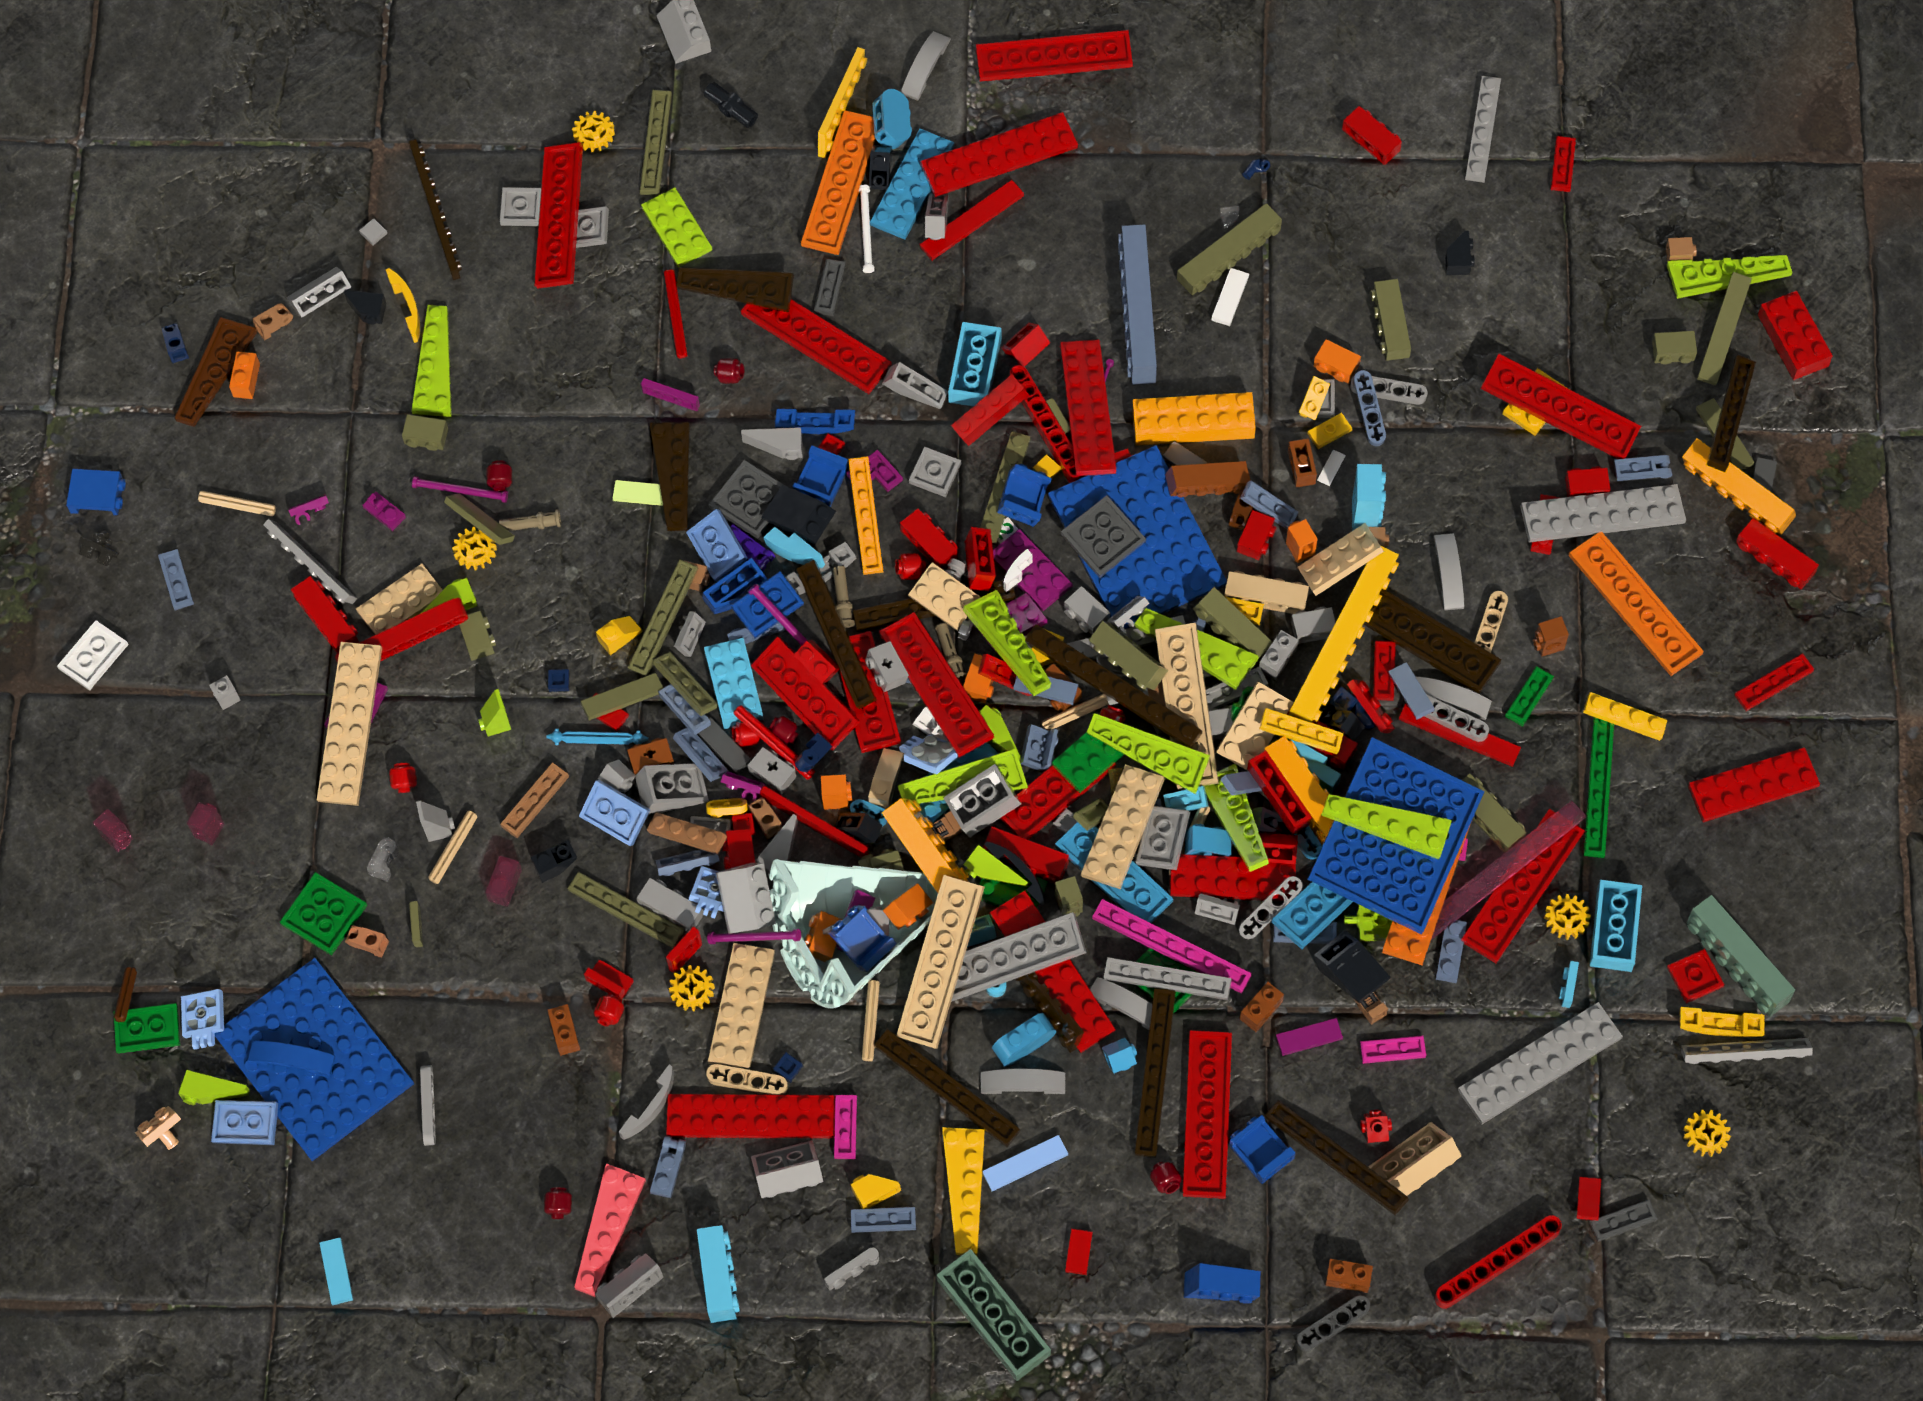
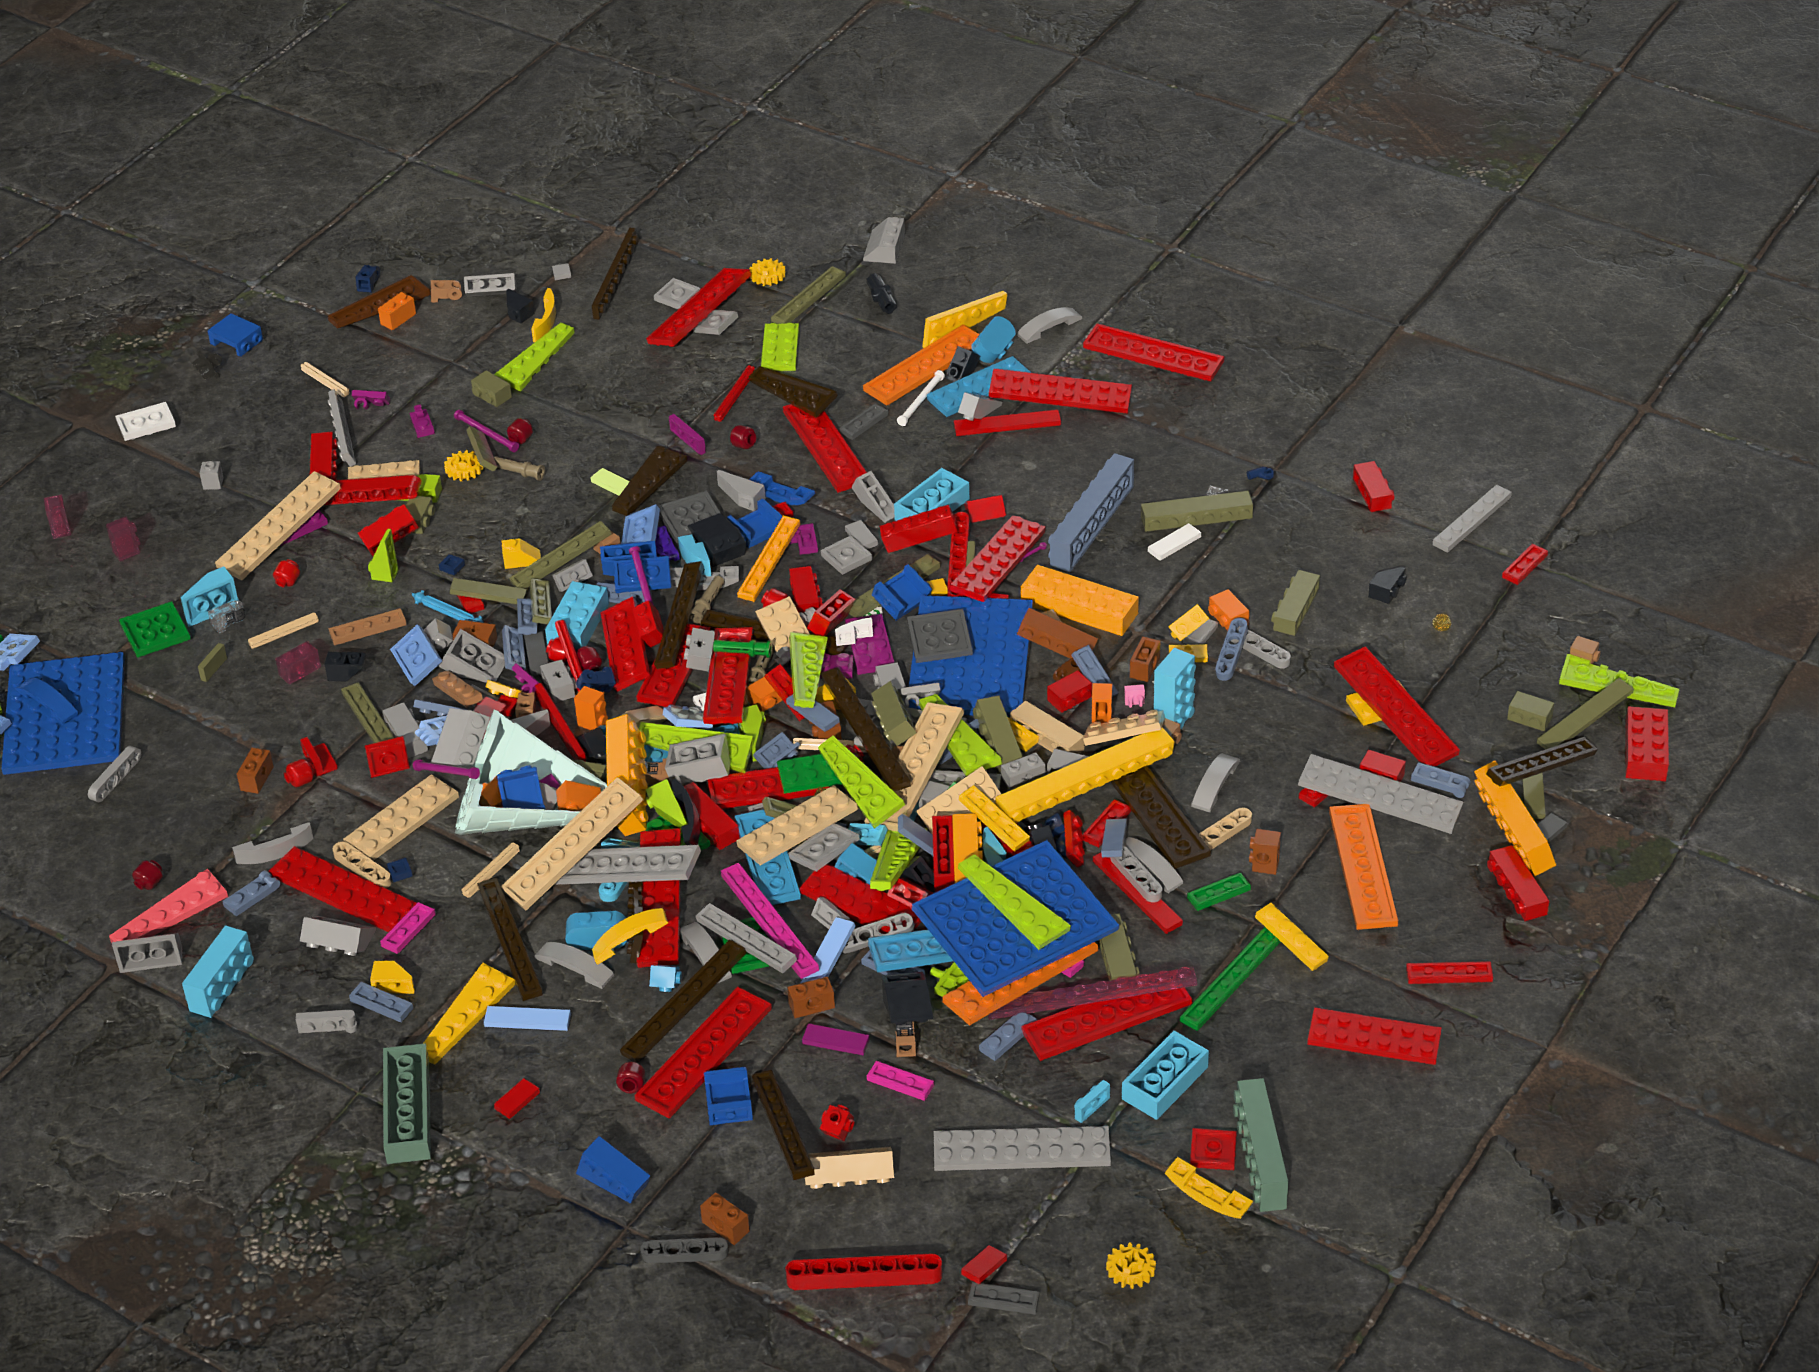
camera: 30 degrees right, 25 degrees down
(176, 579) = (242, 402): sand blue plate -> none
(358, 843) = (208, 593): none -> medium azure slope
(367, 940) = (169, 657): nougat leg -> none
(435, 821) = (279, 601): light grey slope -> none
(468, 674) = (400, 523): none -> red brick
(699, 988) = (373, 787): yellow gear -> none
(929, 437) = (861, 534): none -> light grey tile
(939, 642) = (752, 648): none -> green pin
(1065, 1033) = (625, 929): none -> yellow slope
(1069, 896) = (713, 851): olive brick -> none
(1245, 949) = (831, 948): none -> light blue tile
(1317, 508) = (1134, 695): none -> bright pink tile
(1533, 277) = (1441, 622): none -> clear yellow plate
(1566, 924) = (1129, 1052): yellow gear -> none
(1746, 1050) = (1224, 1225): light grey plate -> none

